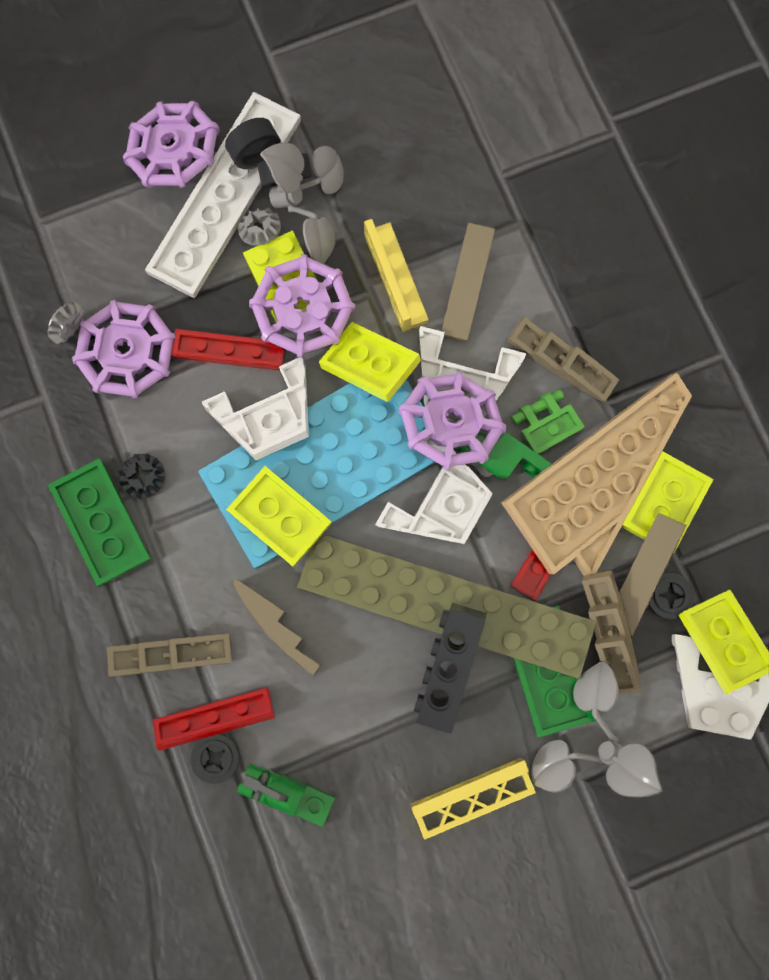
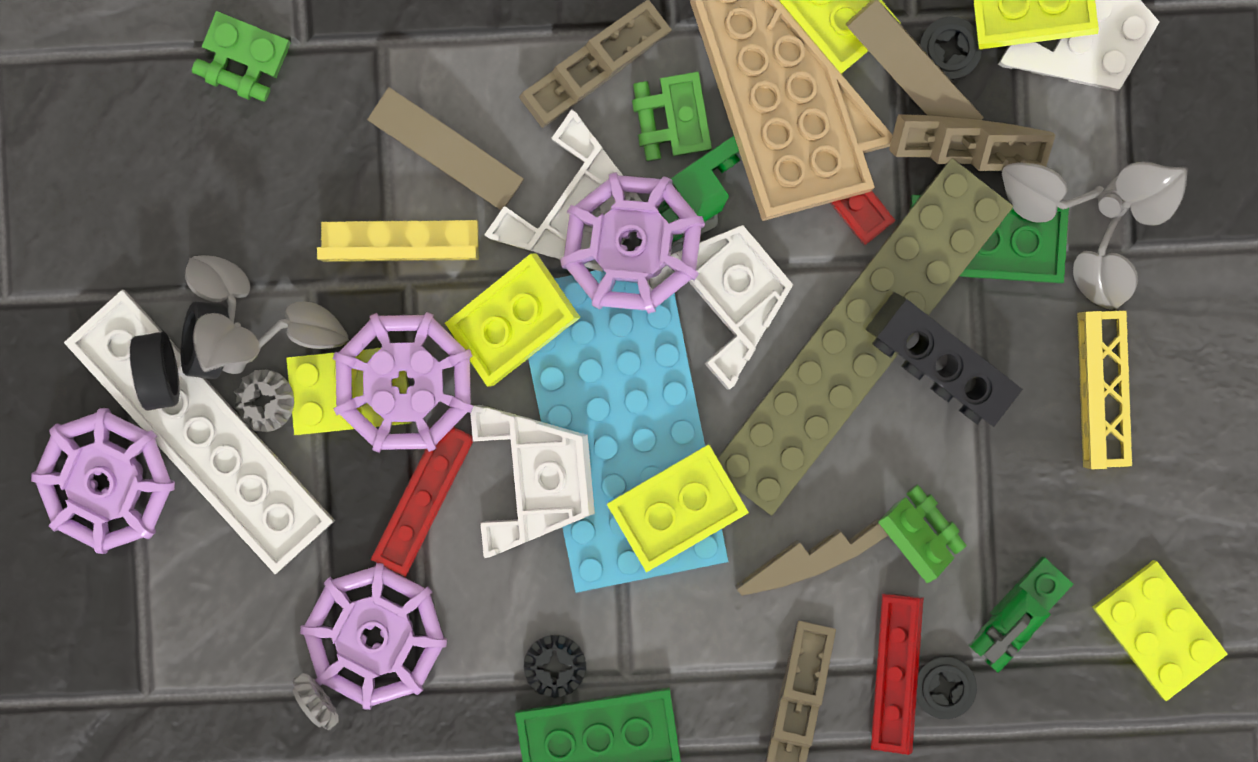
camera: 65 degrees left, 10 degrees up
(310, 908) = (1159, 630): none -> neon yellow plate
(315, 695) = (915, 537): none -> bright green plate
(486, 140) = (245, 45): none -> bright green plate

